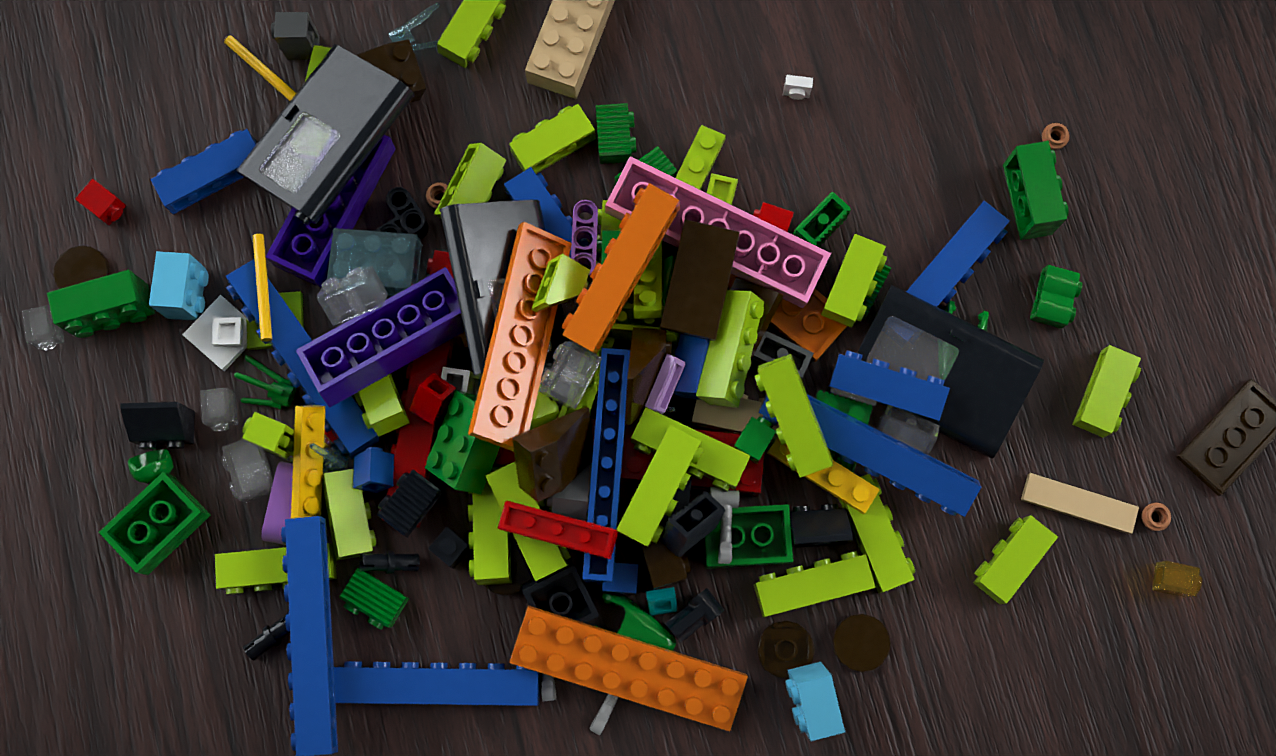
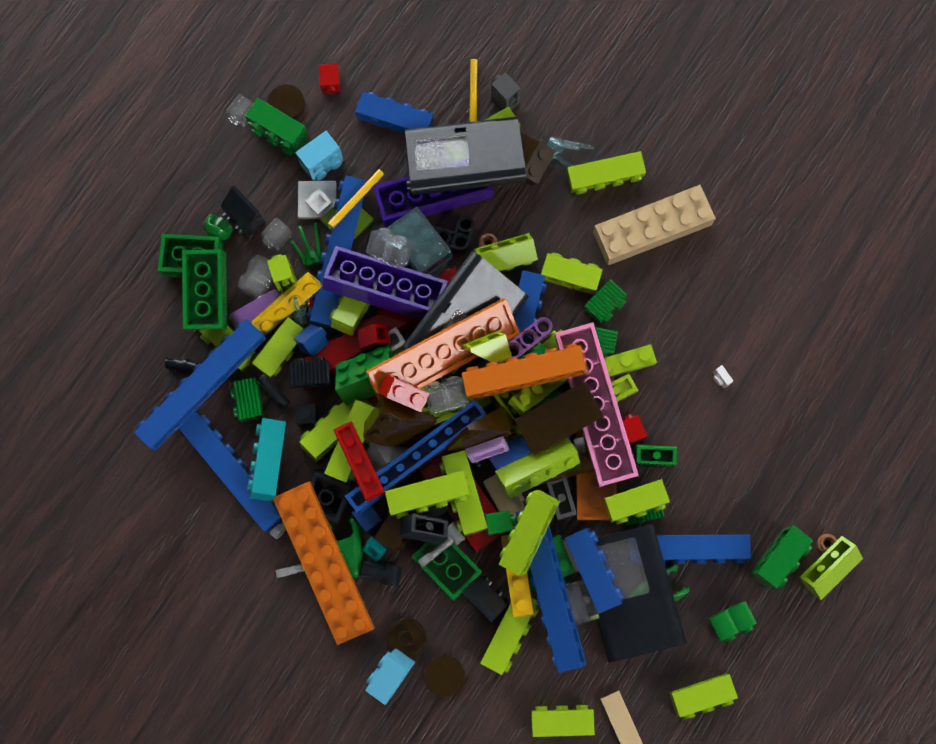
camera: 50 degrees right, 0 degrees up
(208, 537) = (204, 290): none -> green brick
(461, 633) = (267, 461): none -> teal brick
(528, 414) = (403, 392): none -> brick
(813, 585) = (452, 623): lime brick -> none
(1085, 151) = (831, 567): none -> lime brick

